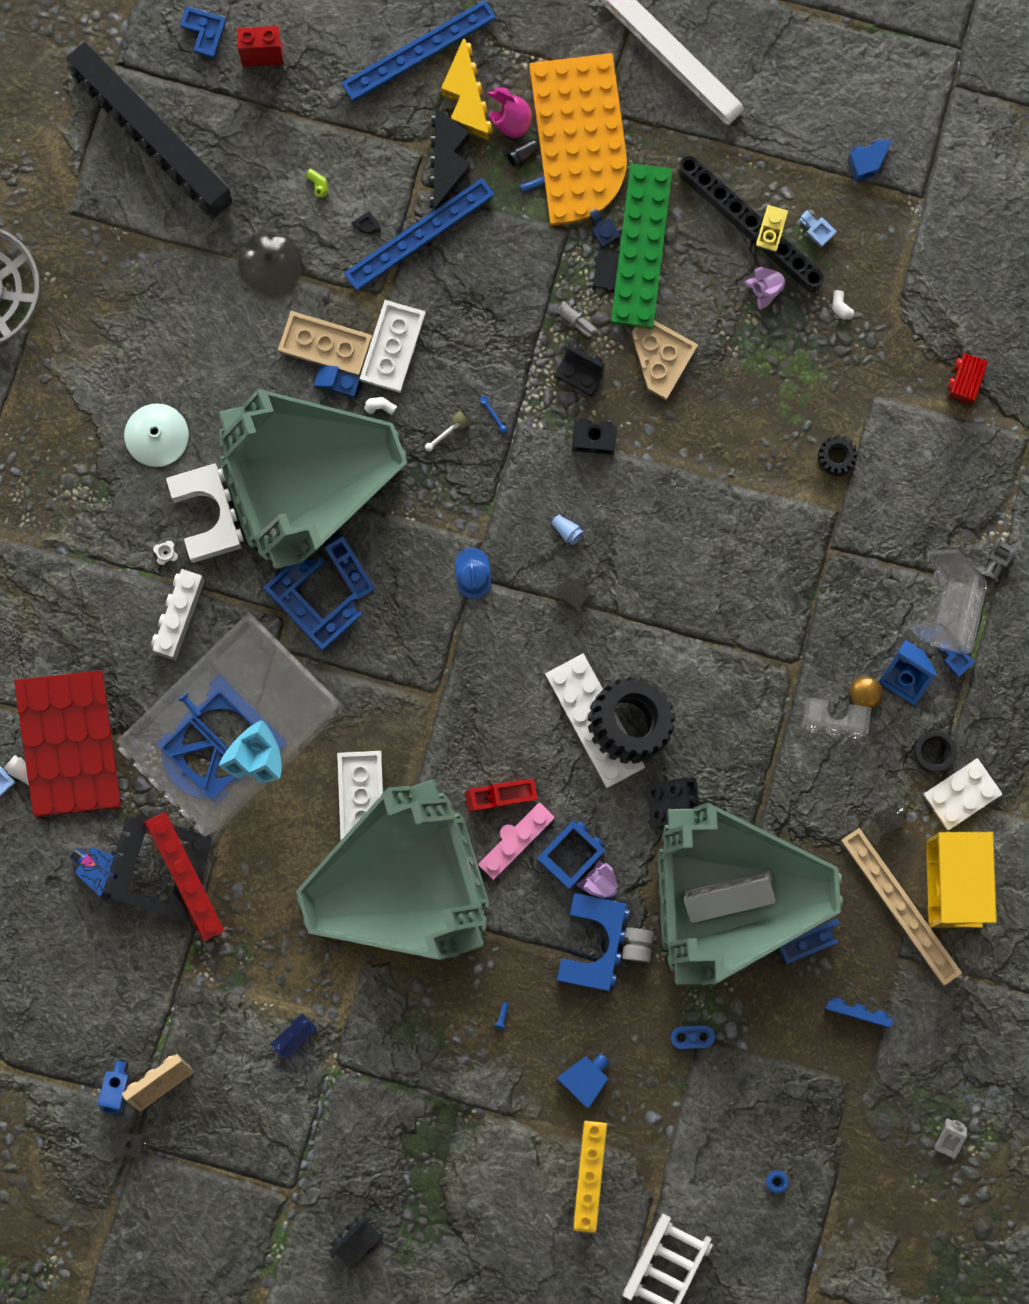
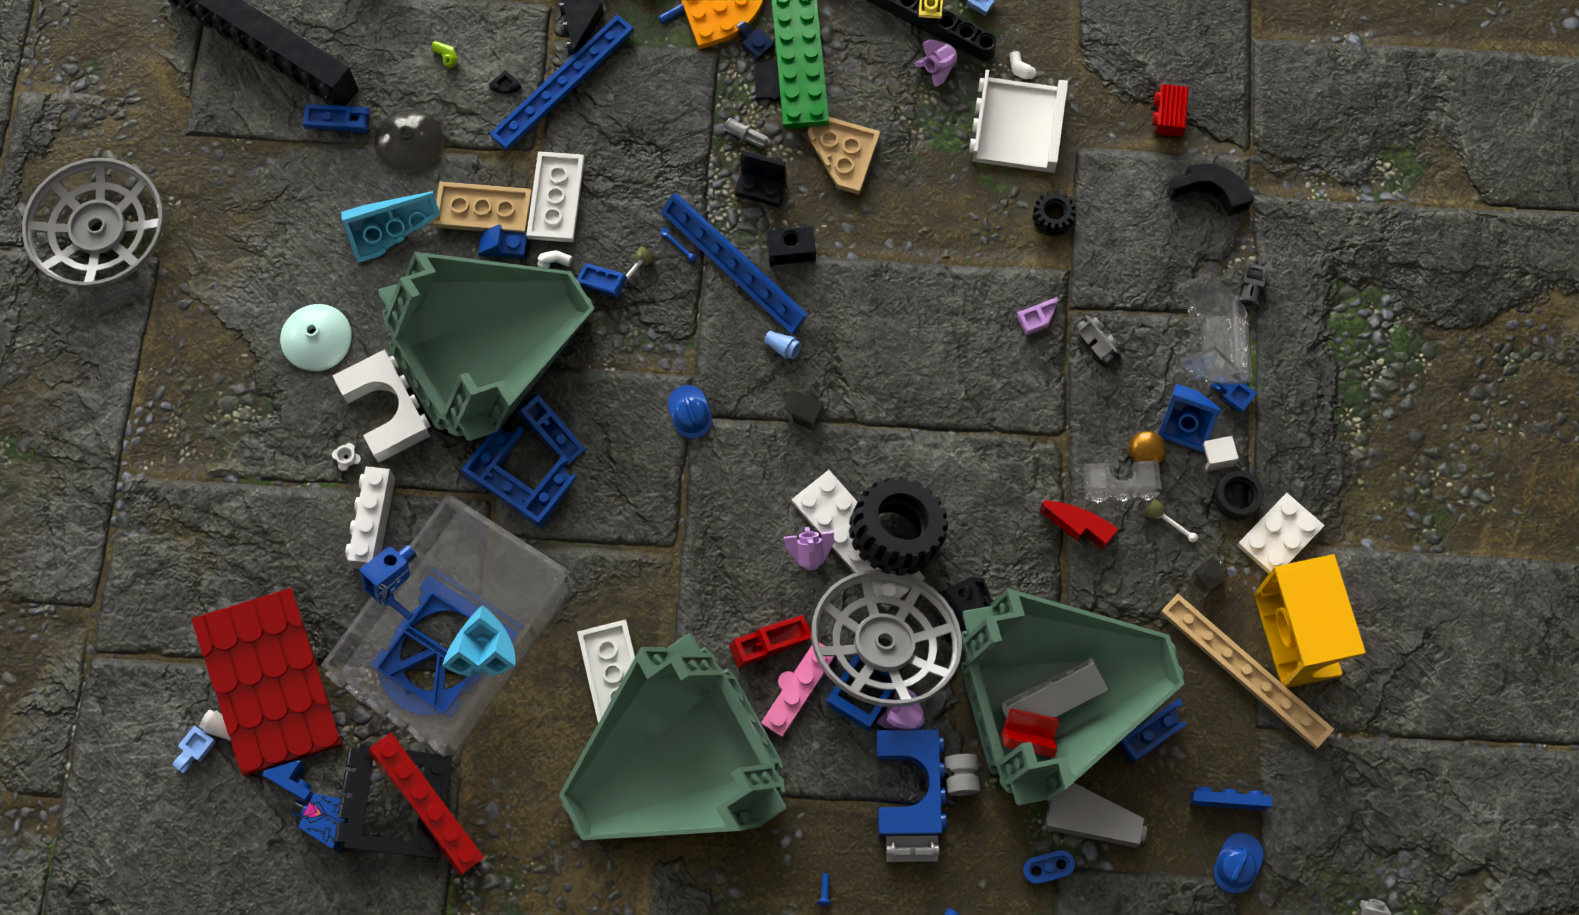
camera: 10 degrees left, 10 degrees down
(70, 826) = (286, 777): none -> blue slope
(179, 680) = (386, 572): none -> blue torso
(207, 227) = (336, 118): none -> blue plate
(233, 341) = (383, 224): none -> medium azure wedge
(418, 435) = (601, 280): none -> blue plate
(539, 444) = (734, 263): none -> blue plate
(551, 722) = (810, 549): none -> lavender brick
(582, 997) = (912, 848): none -> light grey hinge
(607, 809) = (892, 628): none -> light grey dish
(702, 924) = (1030, 727): none -> red panel
(741, 1004) = (1093, 817): none -> light grey slope
(790, 747) = (1079, 522): none -> red slope
(799, 550) = (1037, 317): none -> lavender tile
(826, 361) = (1018, 124): none -> white panel
(846, 574) = (1093, 330): none -> light grey hinge
(852, 1066) = (1238, 863): none -> blue piece
(859, 750) = (1156, 510): none -> hinge
(928, 711) = (1220, 453): none -> white panel
(992, 456) = (1215, 180): none -> black arch

